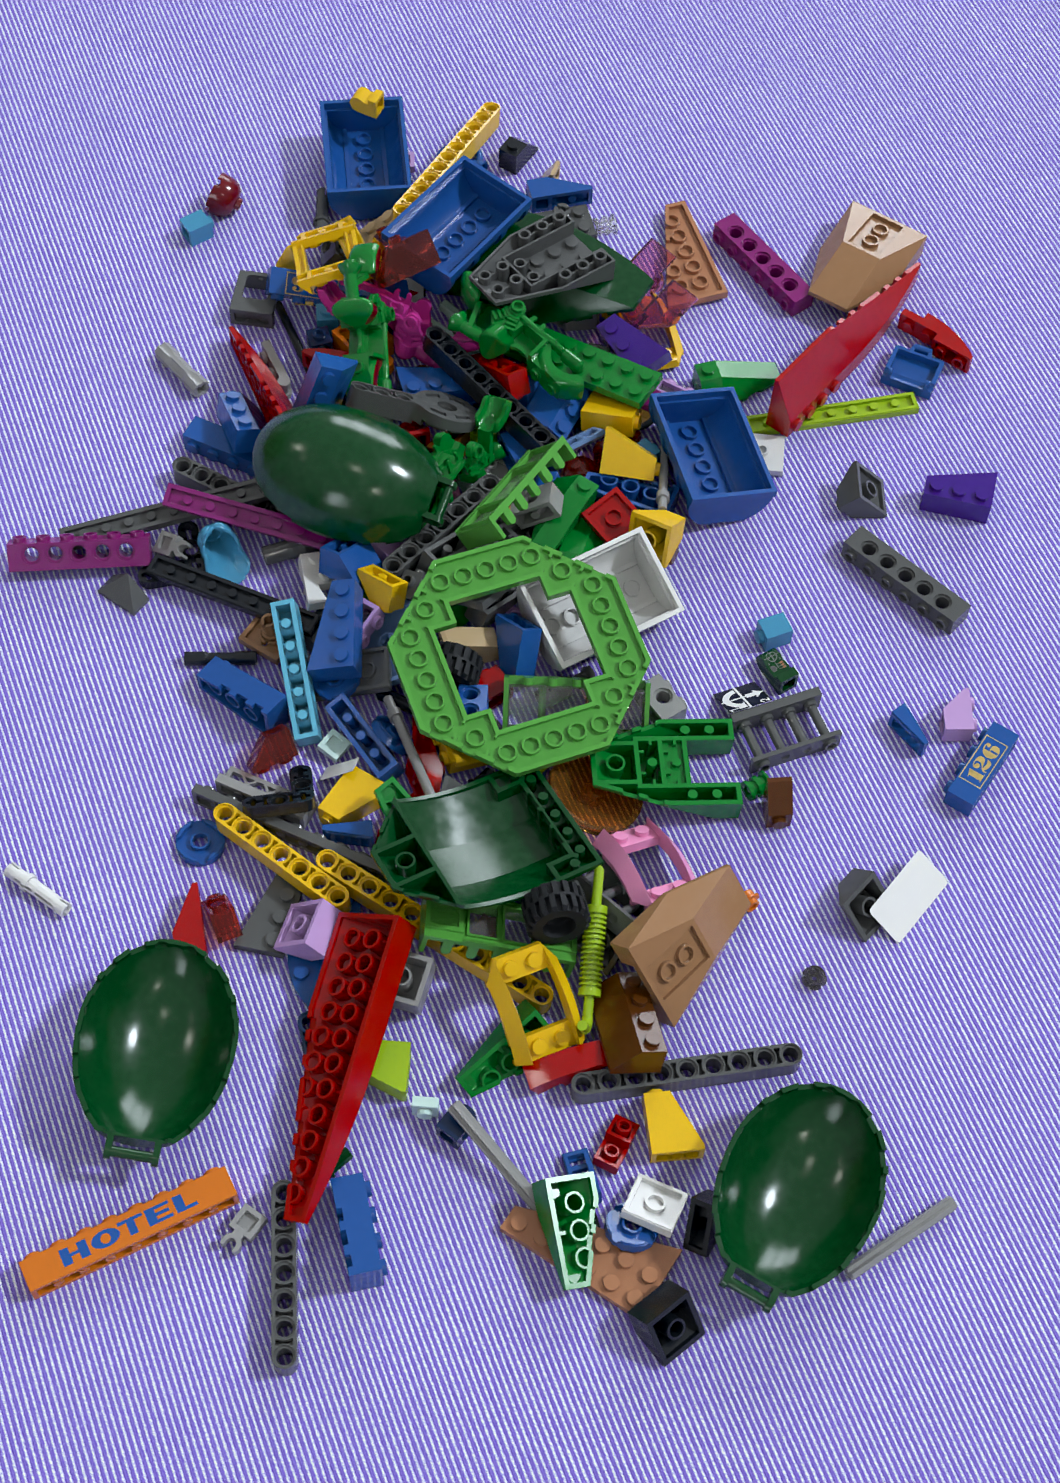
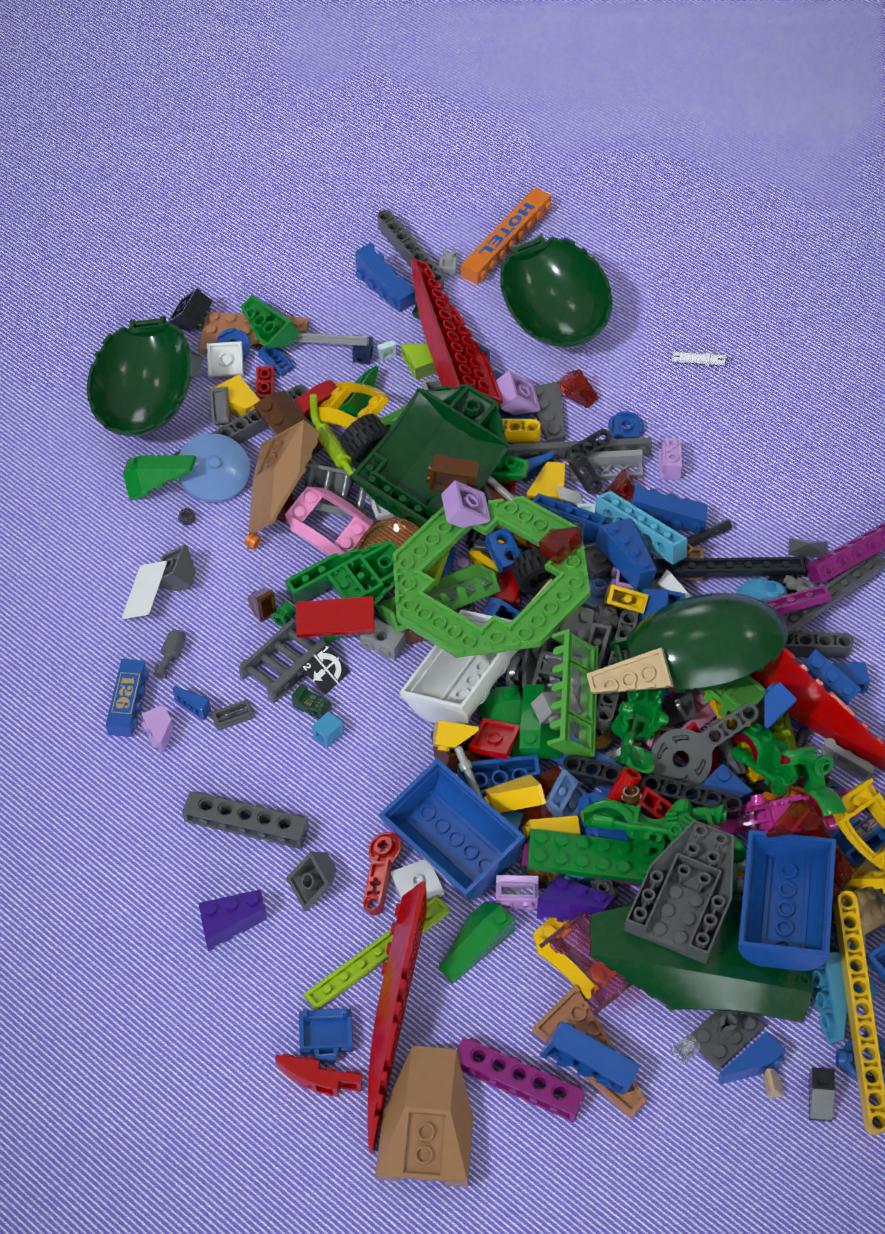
camera: 155 degrees right, 5 degrees down
(187, 763) = (670, 459): none -> lavender window
(190, 922) = (592, 372): red slope -> none
(275, 850) = (565, 423): yellow beam -> none
(427, 624) = (560, 543): none -> clear red slope
(453, 462) = (637, 673): none -> tan wing
(474, 772) = (446, 469): none -> reddish brown window
(496, 741) = (465, 505): none -> lavender slope
(528, 368) = (631, 794): none -> reddish brown plate
(528, 394) = (626, 777): none -> red brick
(700, 237) = (590, 1057): none -> blue wedge
(700, 1117) = (220, 405): none -> dark grey tile
(709, 723) = (335, 617): none -> red tile
(753, 1021) = (219, 468): none -> medium blue dish
(789, 478) = (380, 869): none -> red beam
(832, 1038) = (152, 471): none -> green wedge
(867, 706) = (234, 717): none -> dark grey tile
(900, 1237) = (66, 414): light grey axle -> none
(908, 803) = (170, 650): none -> dark grey piece

